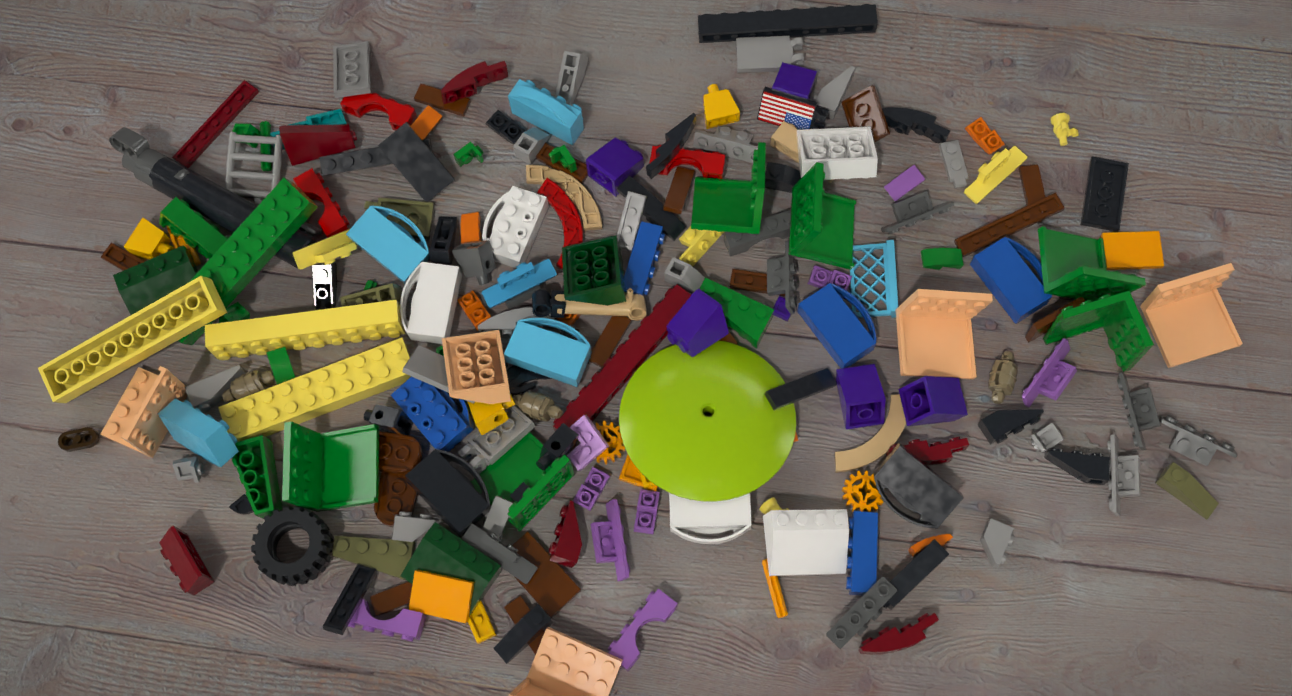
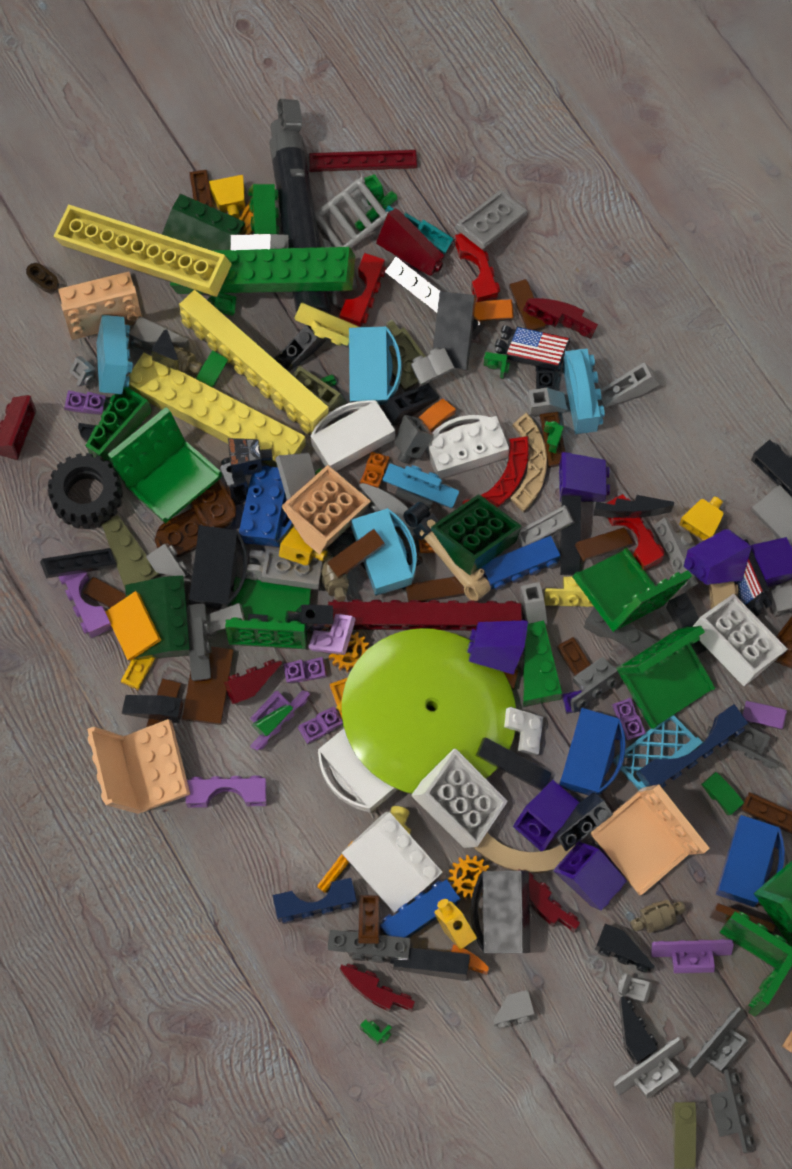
camera: 45 degrees right, 0 degrees up
(211, 246) = (258, 241): none -> slope
(216, 489) = (84, 403): none -> medium lavender slope
(235, 389) = (164, 351): none -> black slope
(380, 393) = (246, 456): none -> black torso
(430, 200) = (432, 366): none -> light grey brick
(479, 119) = (532, 347): none -> tile
(535, 372) = (356, 553): none -> reddish brown tile
(614, 545) = (269, 722): none -> green slope
(762, 117) = (719, 558): none -> dark purple slope
(778, 355) = (529, 727): none -> white plate
(778, 651) = (340, 895): none -> dark blue arch
(799, 450) = (460, 799): none -> white slope
(840, 596) = (368, 919): none -> reddish brown tile
(888, 367) = (583, 820): none -> black slope
(889, 532) = (451, 917): none -> yellow torso
(896, 215) = (724, 725): none -> dark blue arch
(930, 665) = (372, 1031): none -> green bracket

